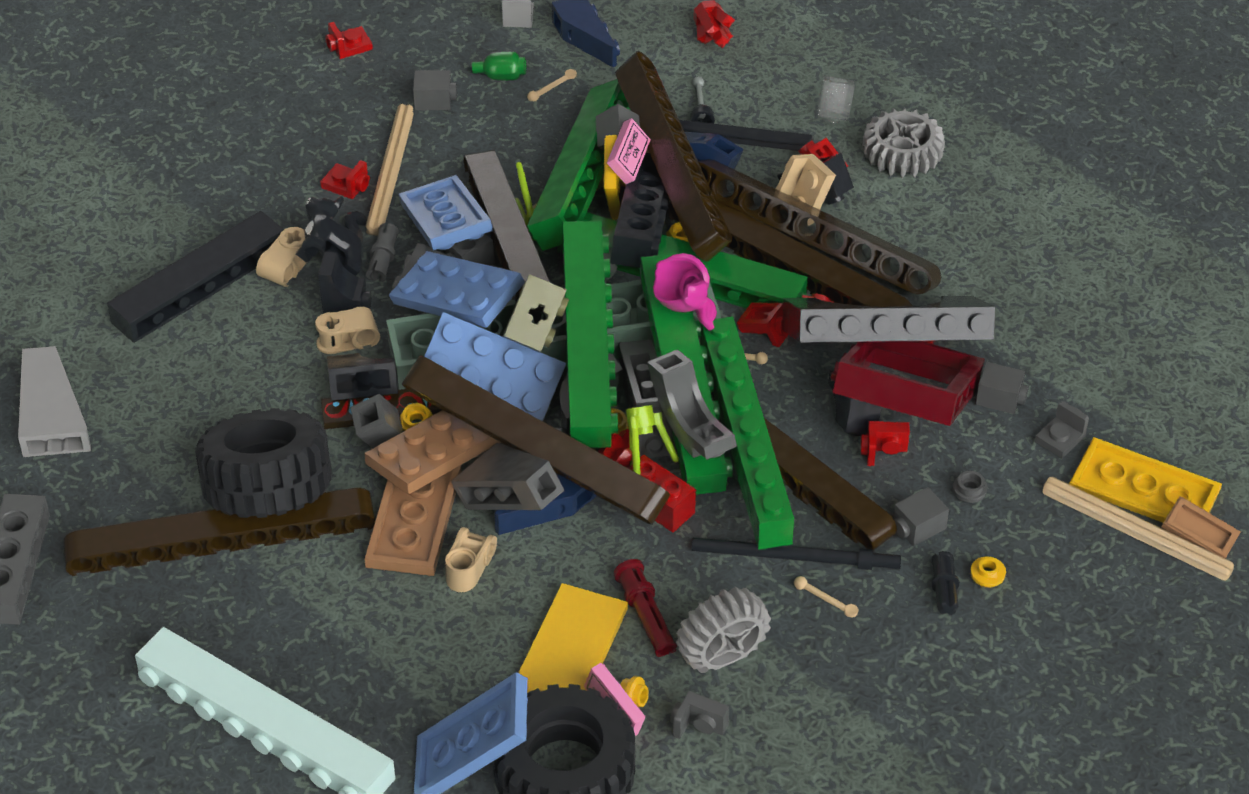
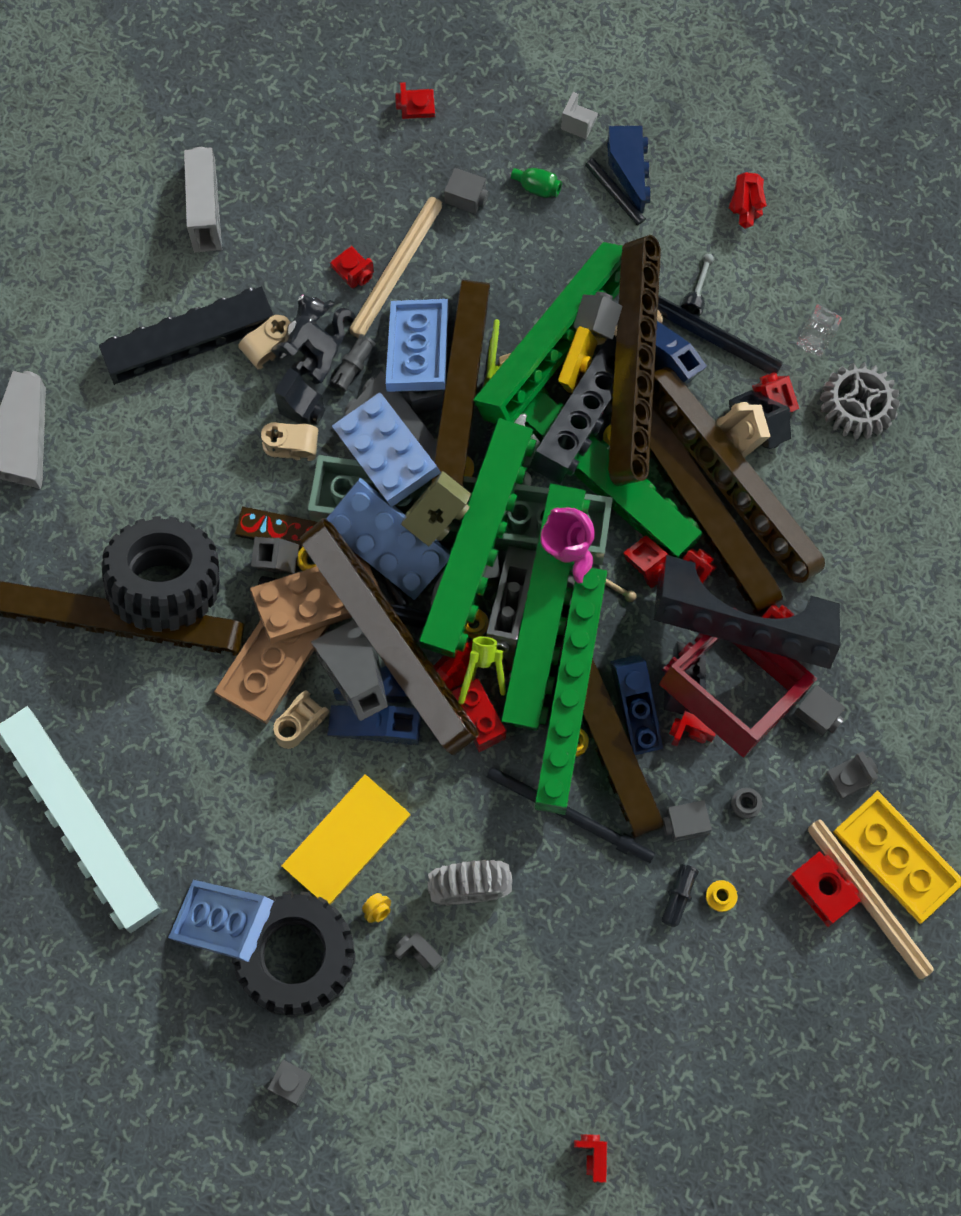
camera: 20 degrees right, 25 degrees up
(167, 165) = (202, 200): none -> light grey slope
(361, 376) = (277, 500): black arch -> none
(534, 95) = (554, 223): tan hinge -> none
(558, 530) = (388, 725): none -> dark blue slope
(579, 56) = (615, 191): none -> black bar
(604, 682) = (356, 914): bright pink tile -> none
(628, 151) = (593, 349): bright pink tile -> none
(641, 596) = (423, 812): dark red pin -> none
(685, 407) = (523, 667): dark grey arch -> none
(801, 583) = (591, 888): tan hinge -> none
(808, 425) = (637, 703): none -> dark blue slope
(1087, 529) = (827, 907): none -> red brick
(1200, 527) = (921, 925): medium nougat tile -> none

